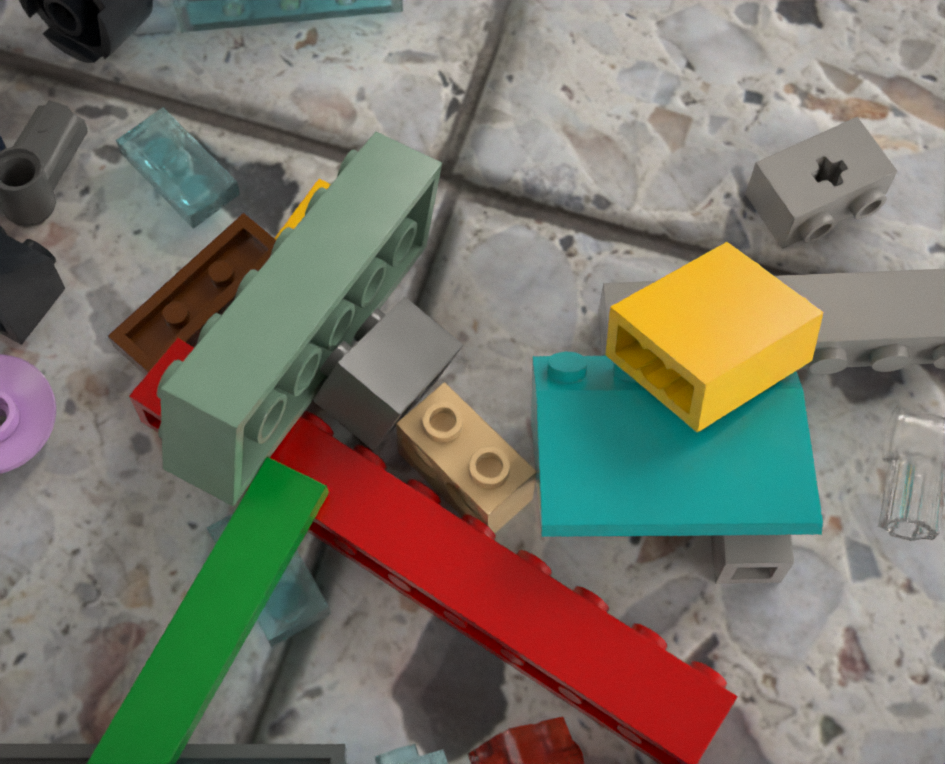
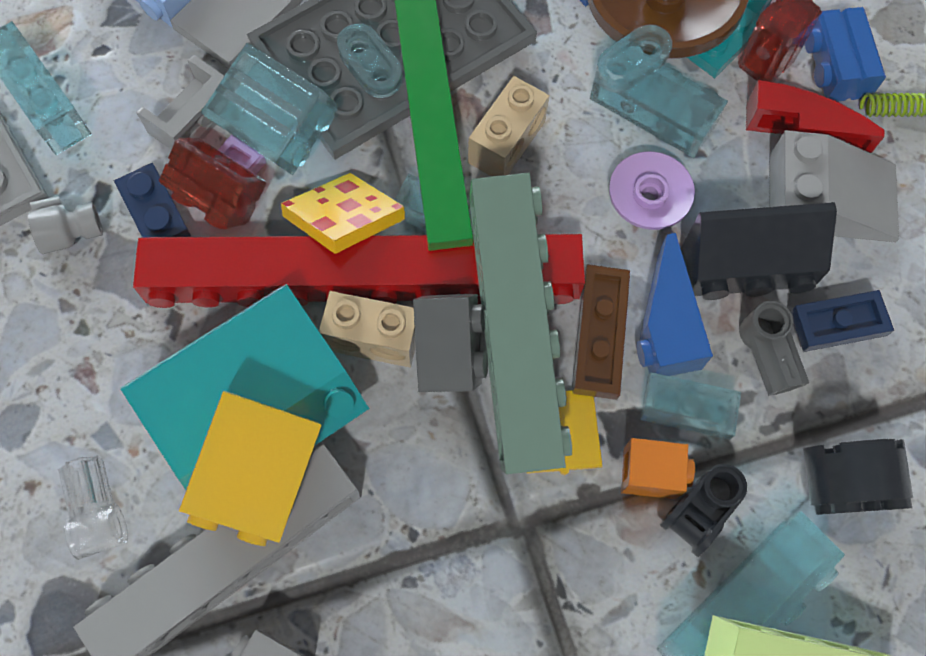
camera: 145 degrees right, 5 degrees up
(86, 615) = (507, 128): none -> tan brick
(111, 262) = (672, 328): none -> blue slope
(247, 71) = (699, 514): none -> black piece
(271, 130) = (656, 469): none -> orange brick
(396, 629) = (343, 212): none -> yellow tile

